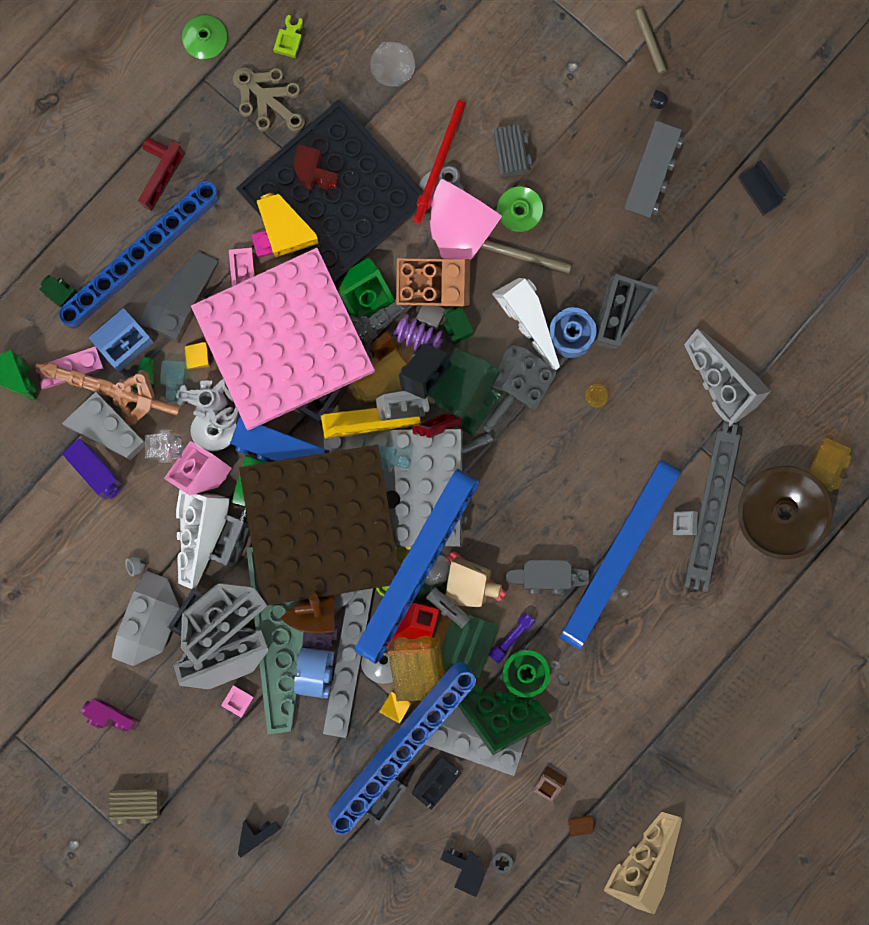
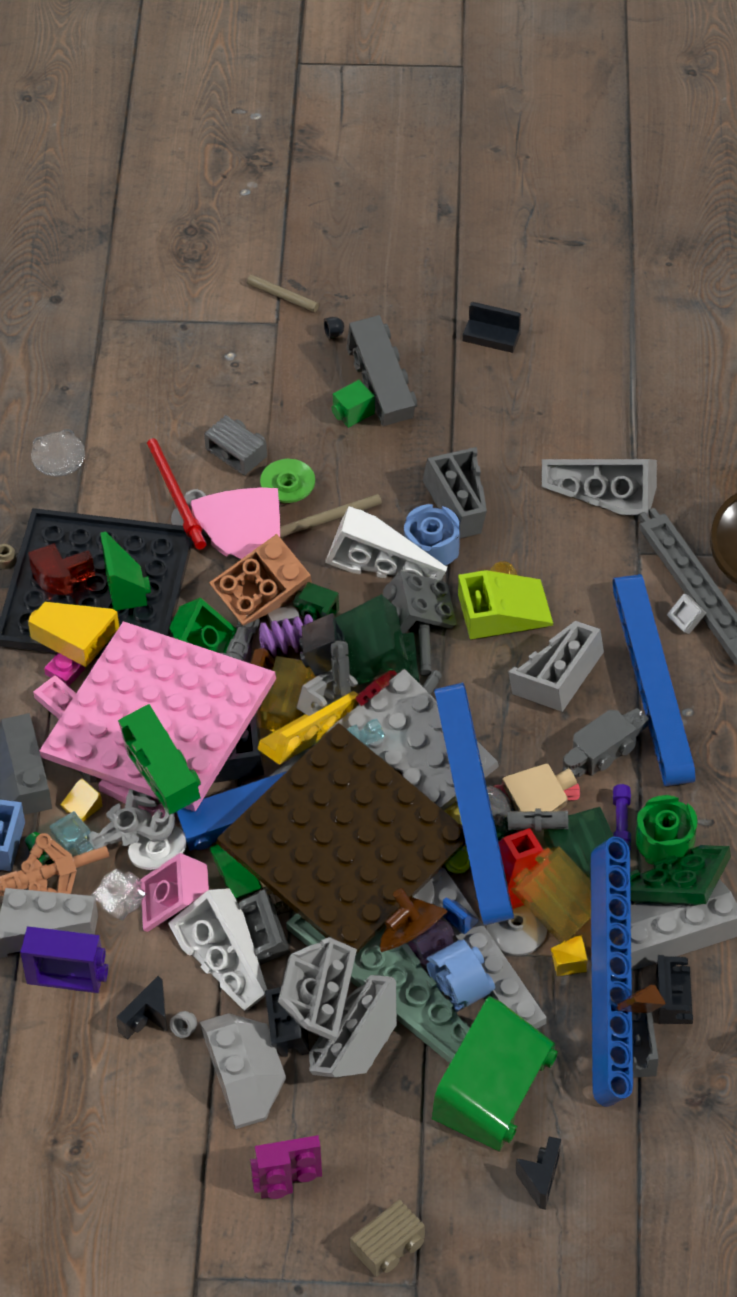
camera: 40 degrees left, 30 degrees down
(126, 540) = (147, 1005): none -> black slope
(237, 701) = (405, 1065): bright pink plate -> none
(242, 389) = (159, 760): none -> green wedge
(279, 755) = (492, 1075): none -> green windscreen
(343, 211) = (124, 576): none -> green slope
(350, 630) = (459, 916): none -> blue slope
(395, 787) = (643, 1001): none -> reddish brown slope
(416, 401) = (340, 668): none -> dark grey axle
(566, 501) = (559, 668): none -> light grey wedge
(575, 422) = (502, 603): none -> lime slope
(615, 178) = (353, 403): none -> green brick

